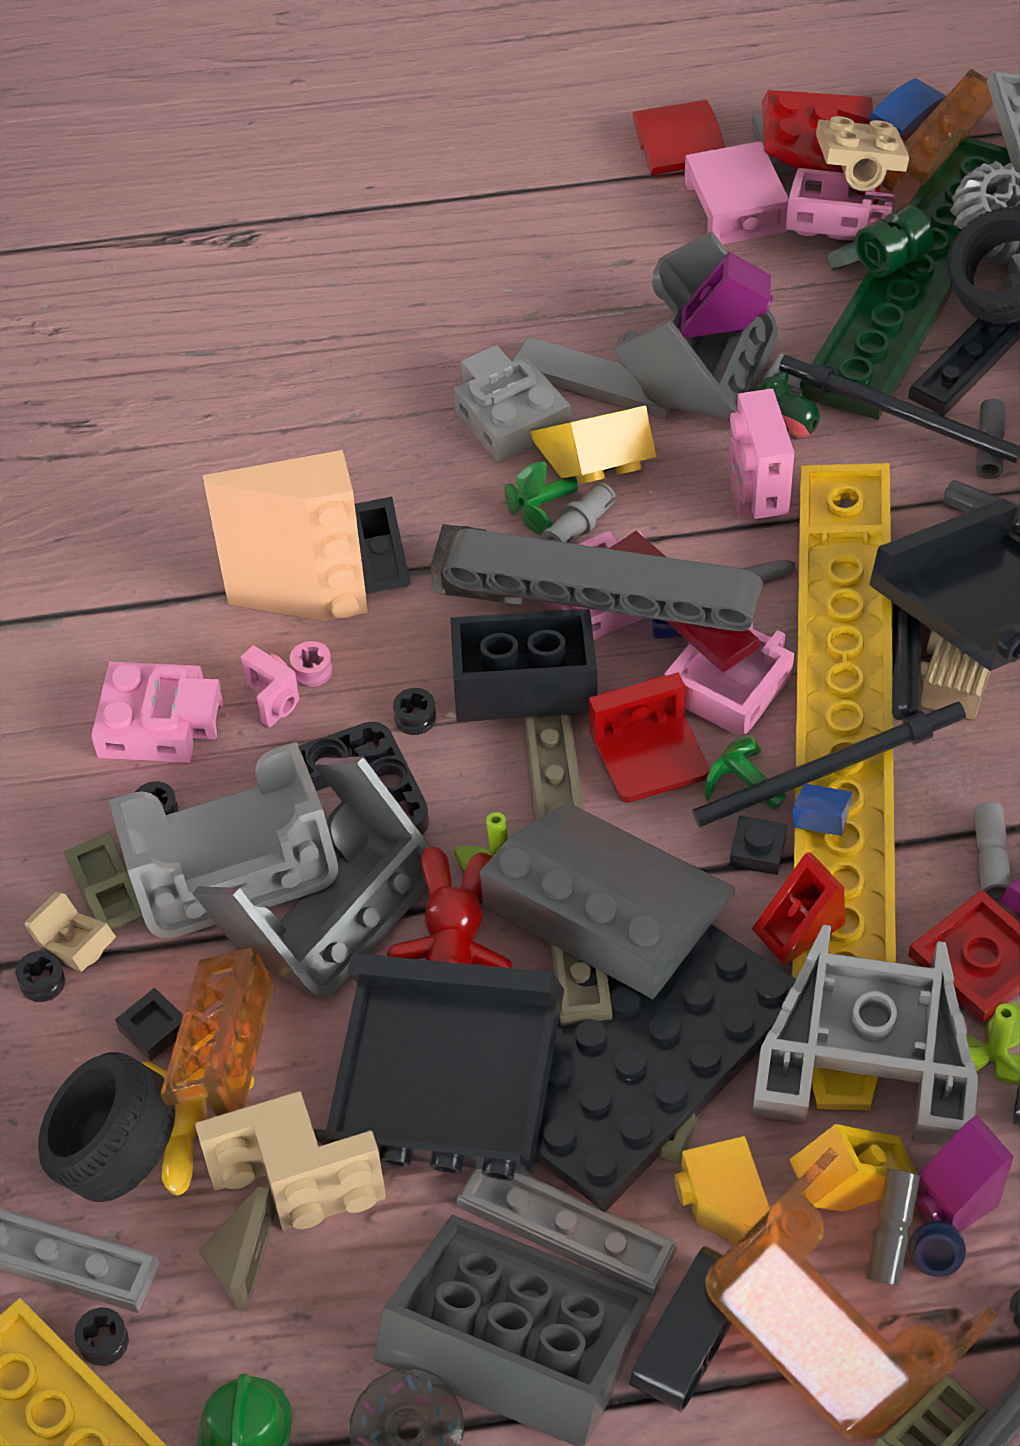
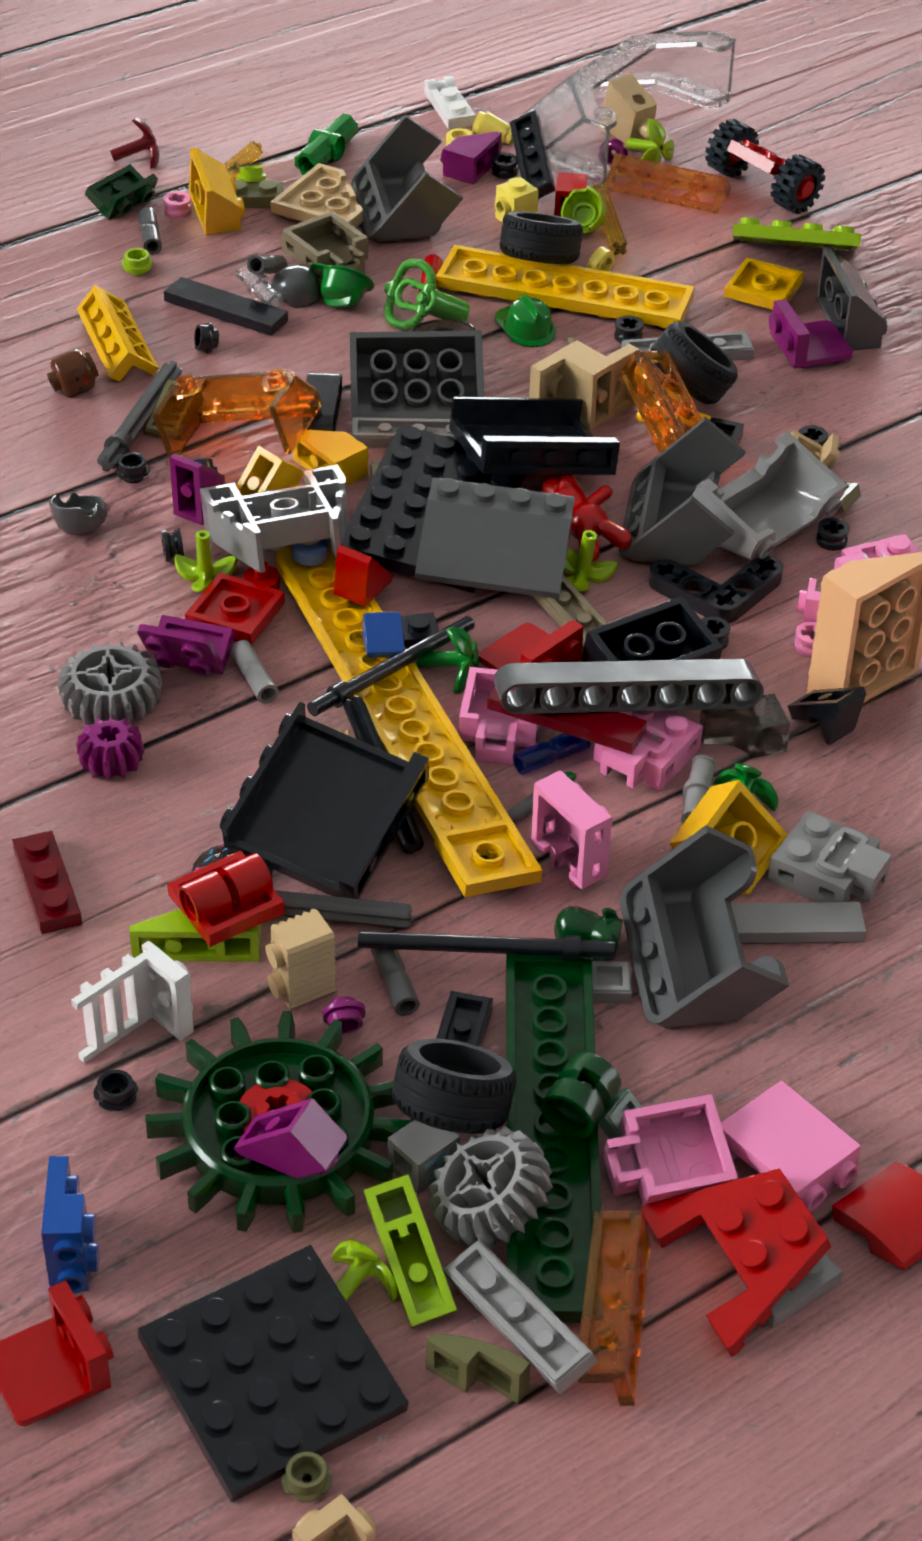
camera: 150 degrees right, 10 degrees down
(727, 299) = (689, 950): magenta slope -> none
(862, 150) = (675, 1176): tan plate -> none
(891, 1235) = (229, 463): dark grey piece -> none
(908, 106) = (677, 1342): blue slope -> none

